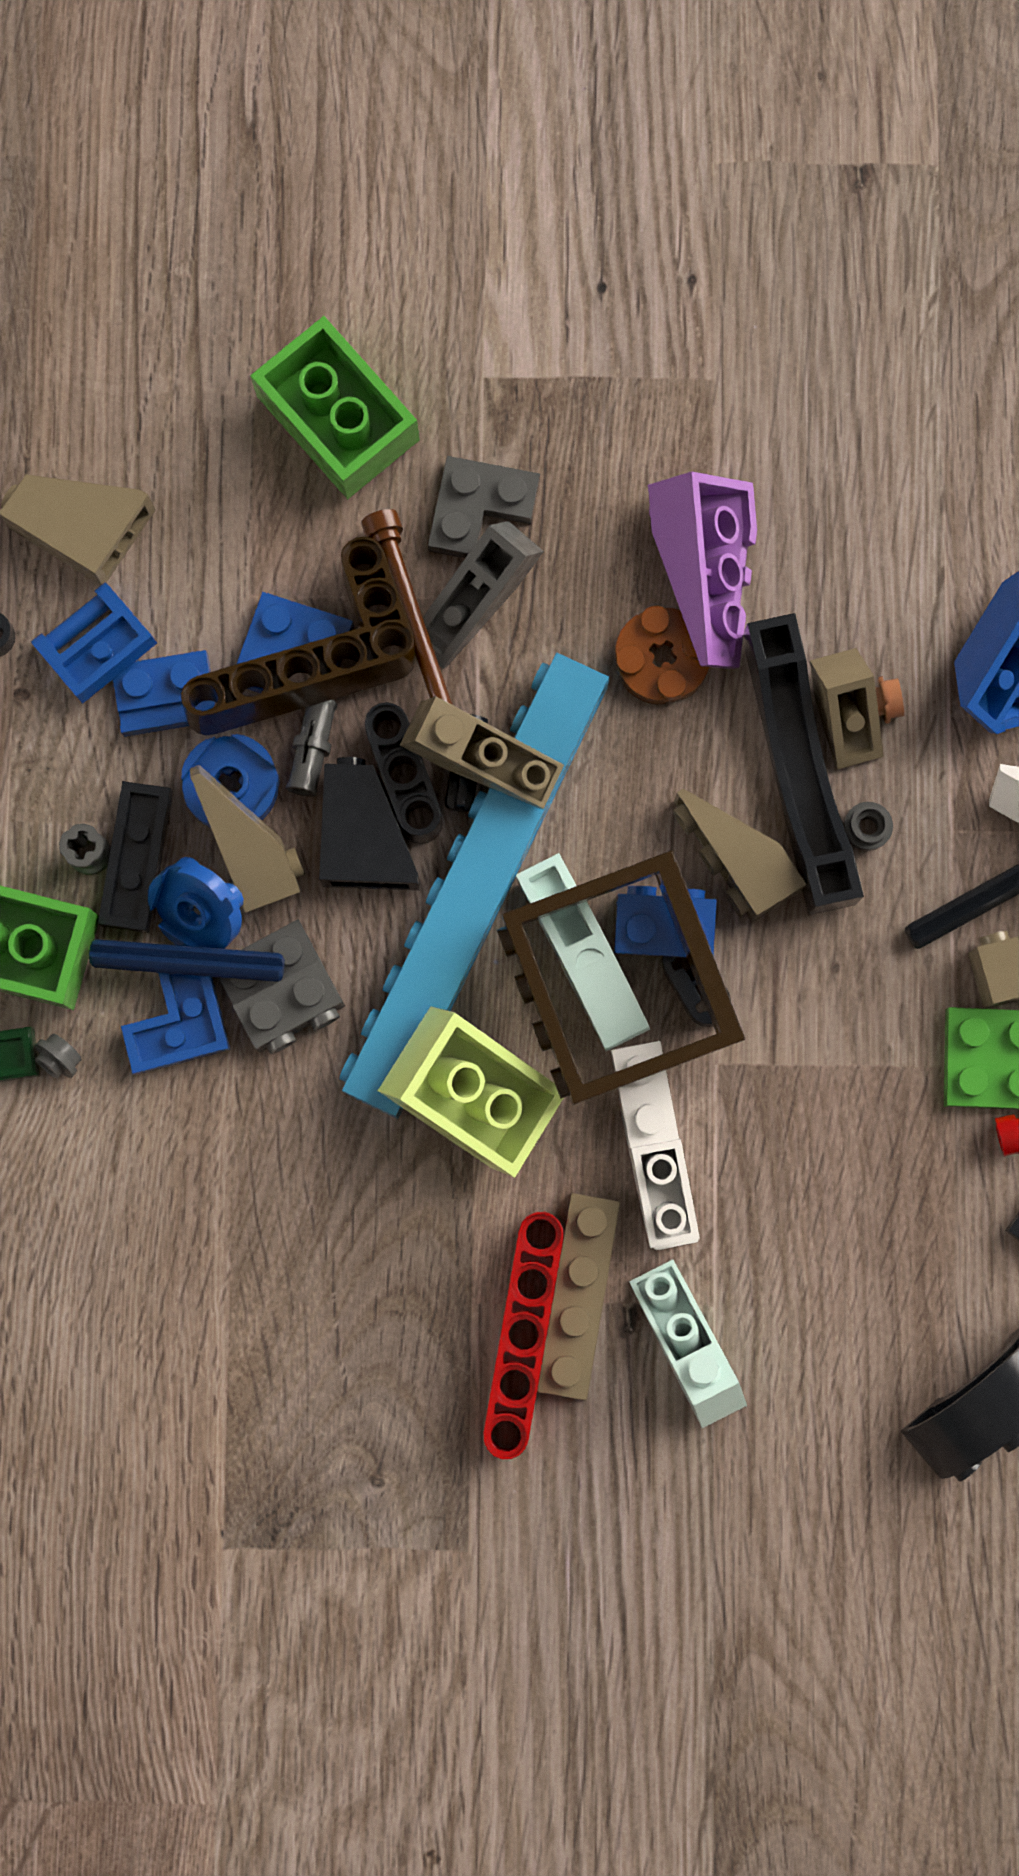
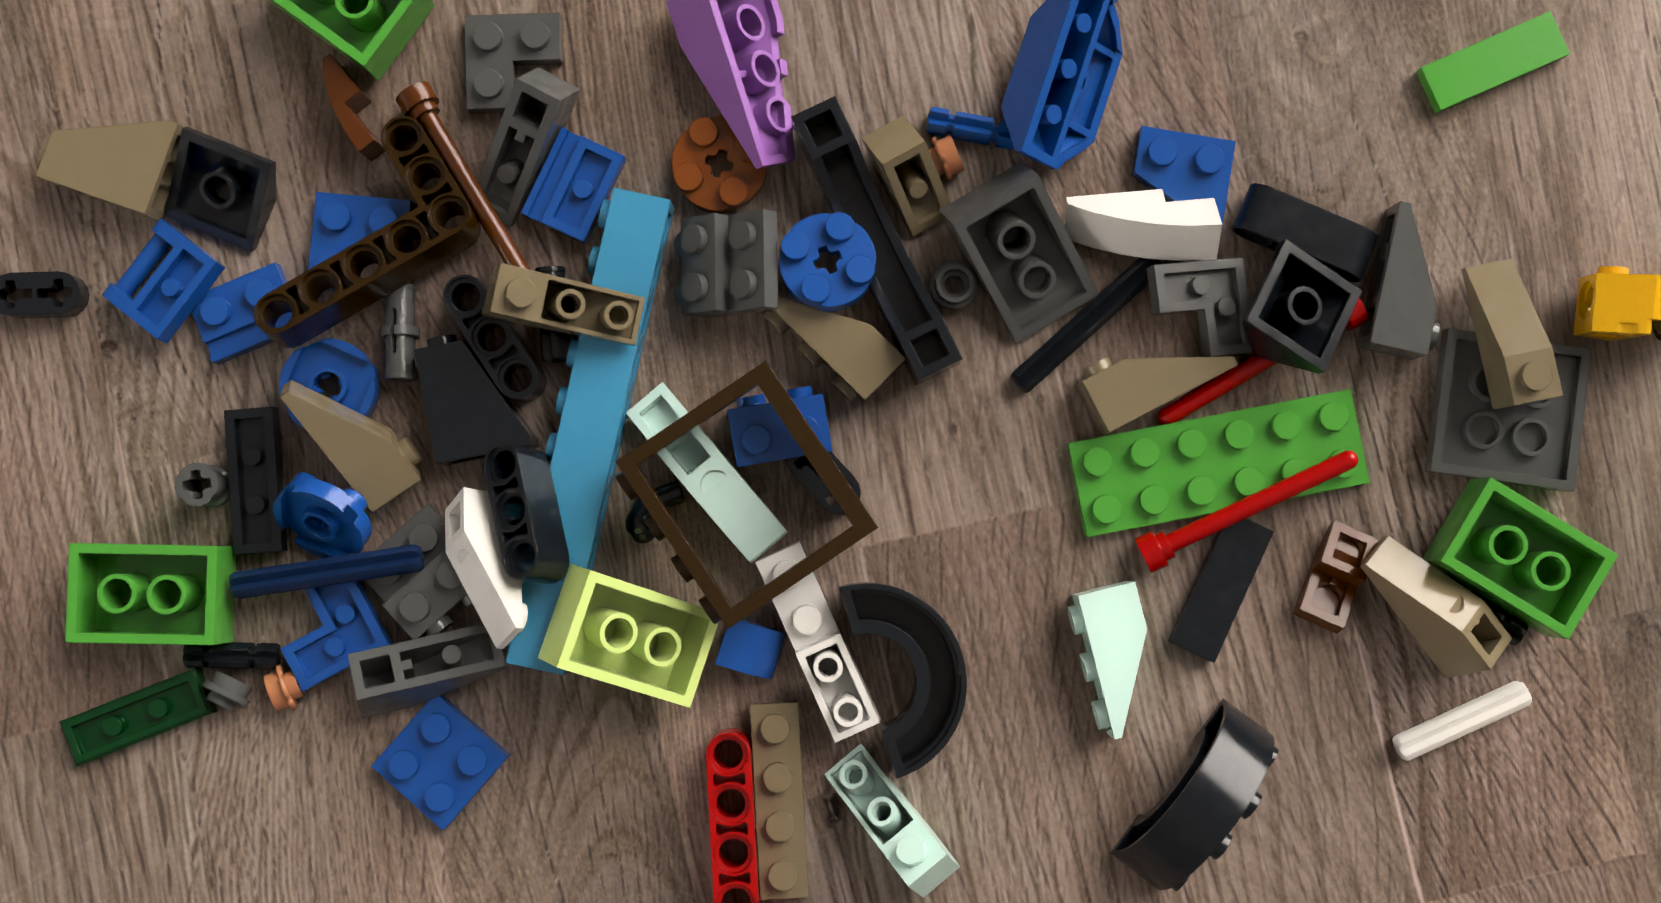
camera: 15 degrees left, 5 degrees up
(69, 1023) = (233, 656): none -> black axle
(113, 1067) = (283, 689): none -> nougat plate
(171, 567) = (221, 189): none -> black slope
(250, 1176) = (440, 760): none -> blue plate
(258, 1078) = (422, 669): none -> dark grey slope
(316, 511) = (347, 102): none -> reddish brown slope
(349, 978) = (477, 559): none -> white slope
(399, 947) = (526, 513): none -> black beam
(503, 984) = (670, 494): none -> black arm
(515, 643) = (573, 185): none -> blue plate
(586, 1136) = (751, 649): none -> blue brick
(651, 752) = (728, 263): none -> dark grey plate
(735, 794) = (831, 234): none -> blue plate
(767, 1184) = (937, 663): none -> black brick
(917, 676) = (968, 127): none -> blue axle
(941, 807) = (1019, 251): none -> dark grey slope
(951, 1212) = (1113, 641): none -> light aqua slope

